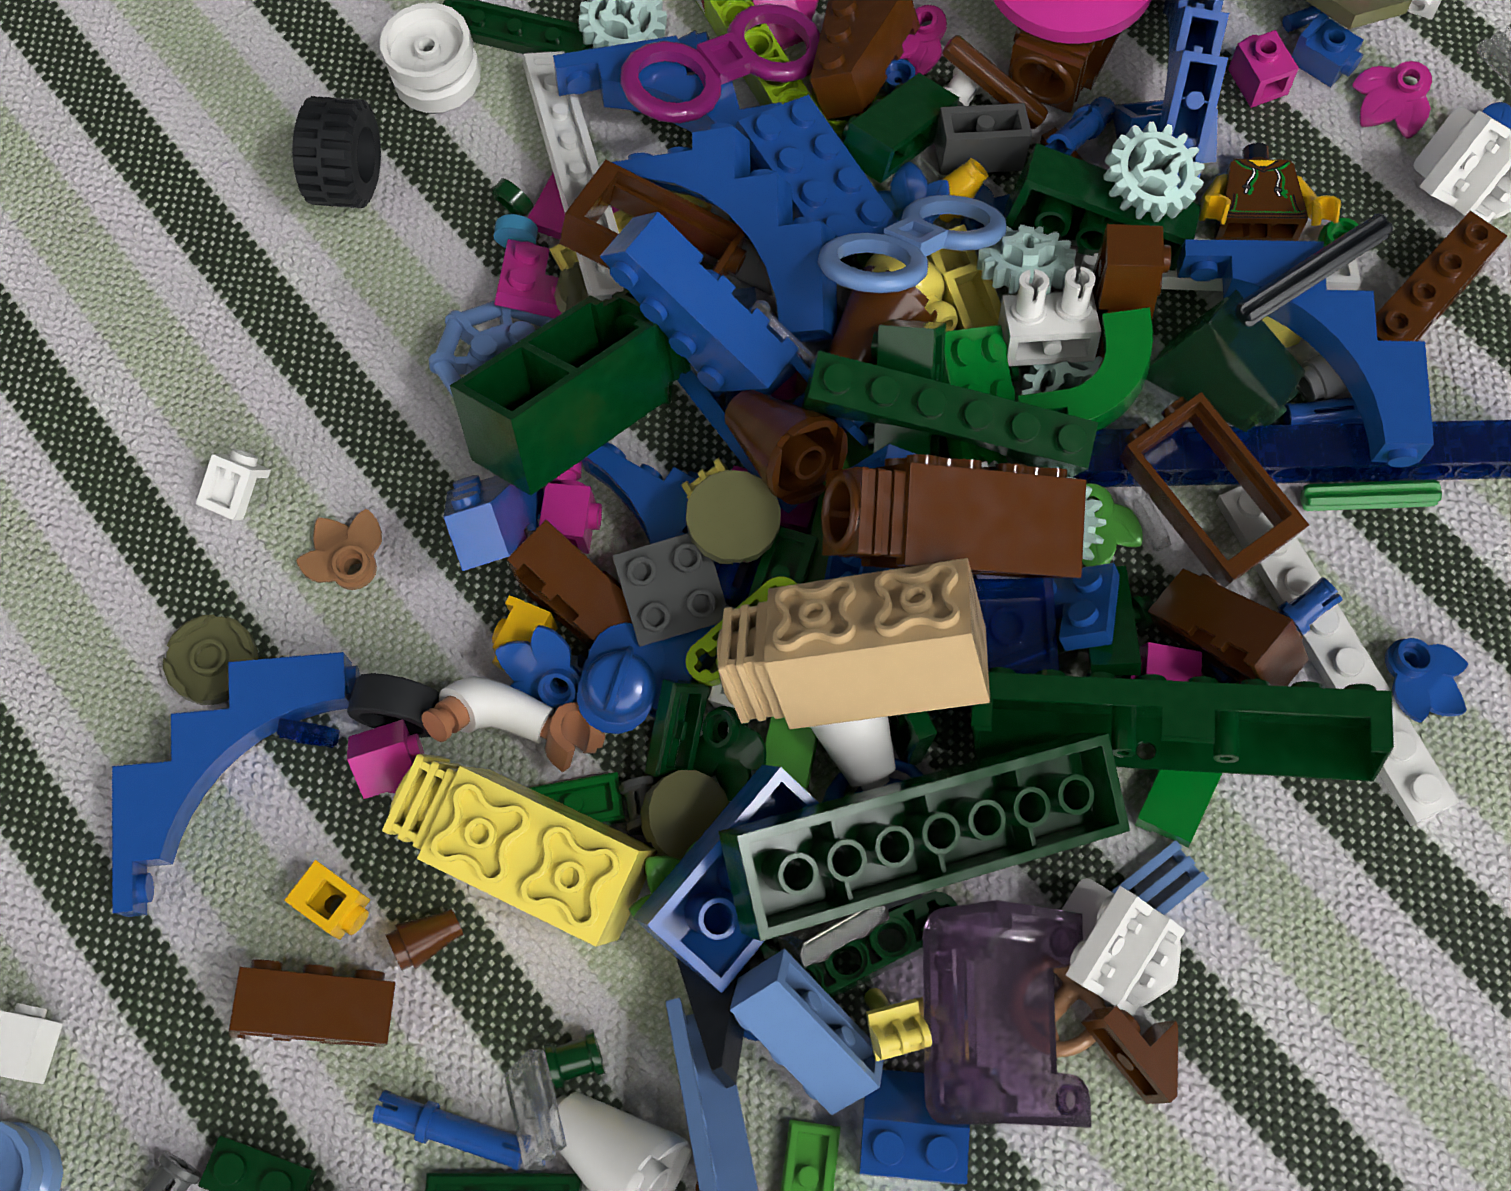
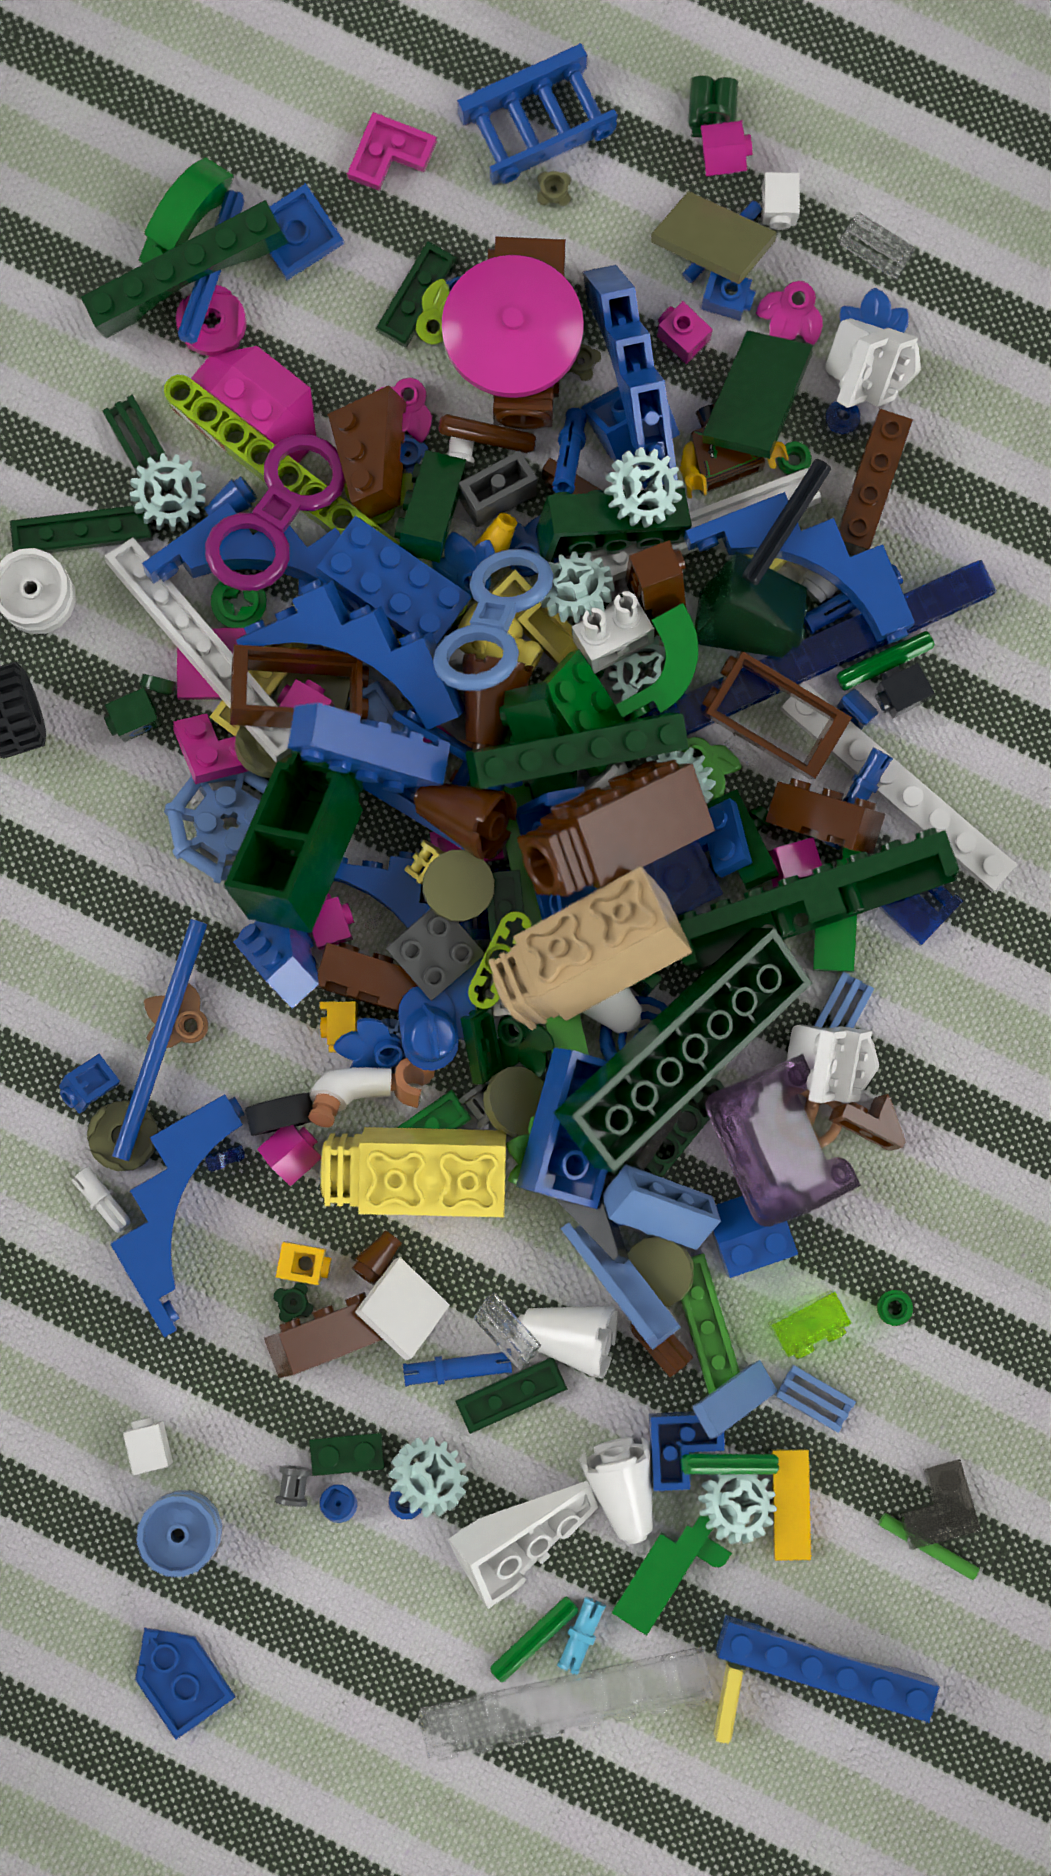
camera: 30 degrees left, 15 degrees up
(142, 718) = (101, 1199): none -> white axle
(203, 579) = (87, 1083): none -> blue bracket
(230, 483) = (67, 1002): white bracket -> none
(286, 936) = (287, 1311): none -> dark green plate
(304, 567) = (159, 1040): none -> blue piece
(417, 1015) = (402, 1308): none -> white tile
(467, 217) = (132, 715): none -> dark green brick
(515, 228) = (175, 711): dark azure tile -> none
(574, 1059) = (516, 1289): dark green bush -> none
(640, 139) = (225, 611): none -> green gear
(764, 307) = (408, 724): clear hinge -> none
(779, 1121) = (664, 1267): none -> olive tile
(896, 1027) = (714, 1177): light yellow arm -> none
(1137, 51) = (591, 357): none -> olive plate
(1301, 812) = (918, 917): none -> clear blue plate
(1316, 537) = (858, 708): none -> blue slope
(1325, 149) = (757, 394): none -> dark green tile
(1383, 534) = (903, 690): none -> black brick
(1414, 227) = (840, 426): none -> clear blue plate
(1428, 680) = (972, 784): blue plate -> none

